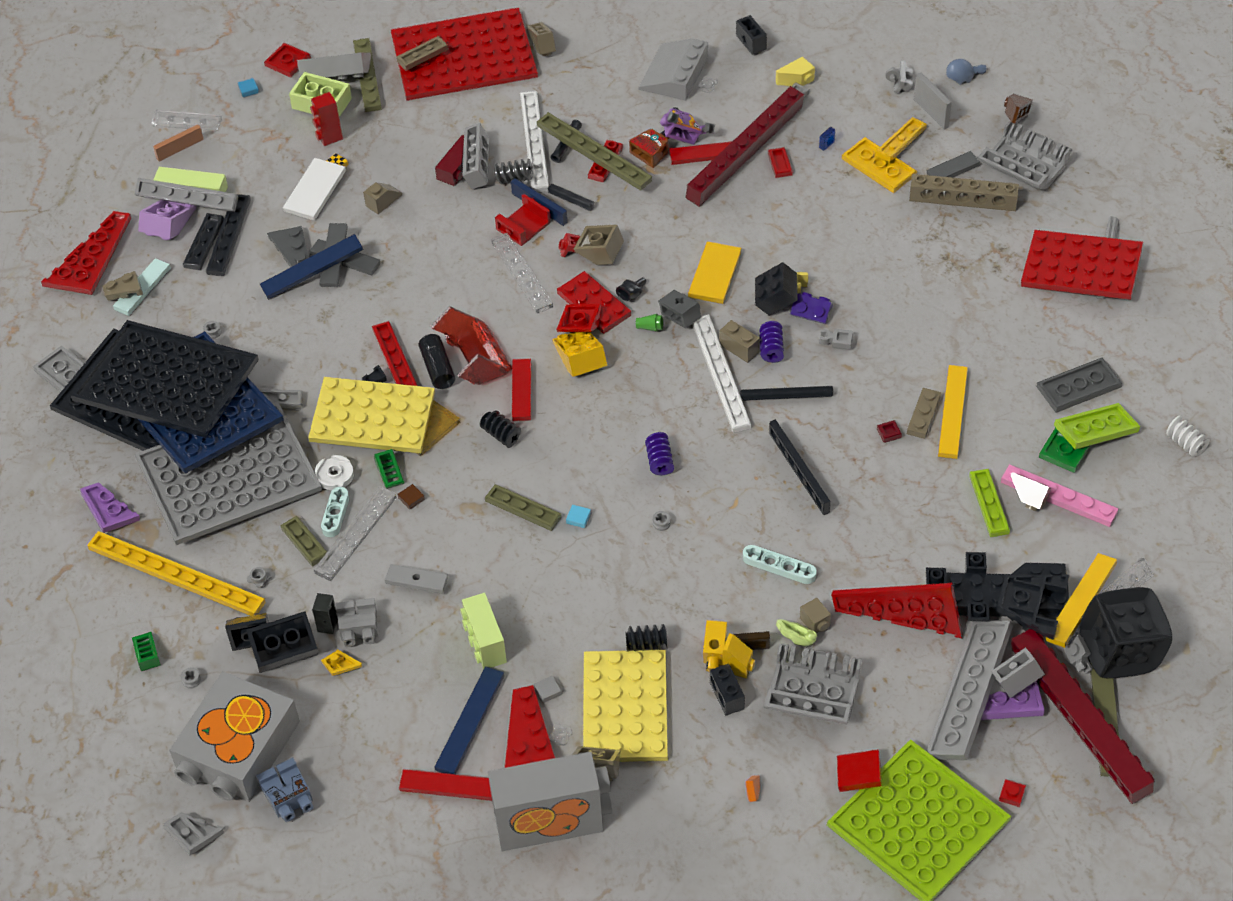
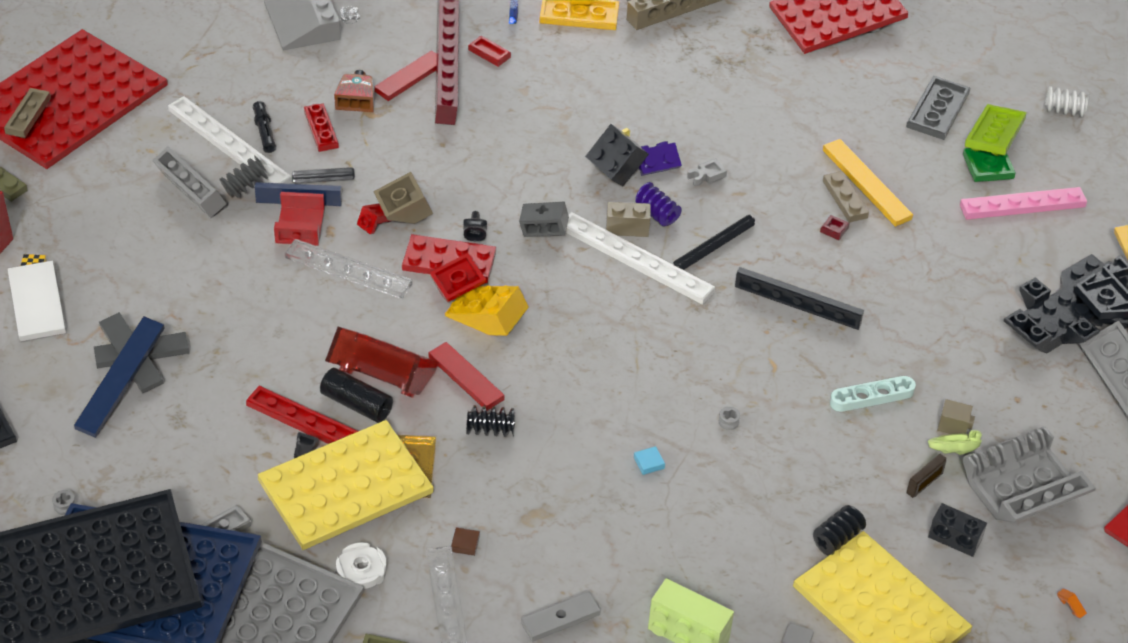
camera: 45 degrees left, 5 degrees down
(290, 244) = (68, 368): dark grey wing -> none
(336, 519) = (402, 594): light aqua beam -> none
(380, 196) = (121, 273): dark tan slope -> none
(385, 456) = (411, 518): green slope -> none
(451, 165) = (170, 202): dark red slope -> none
(523, 507) = (587, 484): olive tile -> none
(542, 38) = (139, 45): dark tan slope -> none
(594, 151) = (309, 119): olive plate -> none
(651, 322) = (526, 247): bright green cone -> none
(659, 454) = (666, 358): dark purple piece -> none
(683, 127) = (372, 60): medium lavender torso -> none
(714, 272) = (535, 173): yellow tile -> none
(714, 642) = (907, 496): yellow torso -> none
(738, 656) = (933, 492): yellow slope -> none
(908, 606) = (1027, 359): red wing -> none
(989, 503) = (978, 240): lime tile -> none
(1031, 491) = (1007, 210): slope -> none

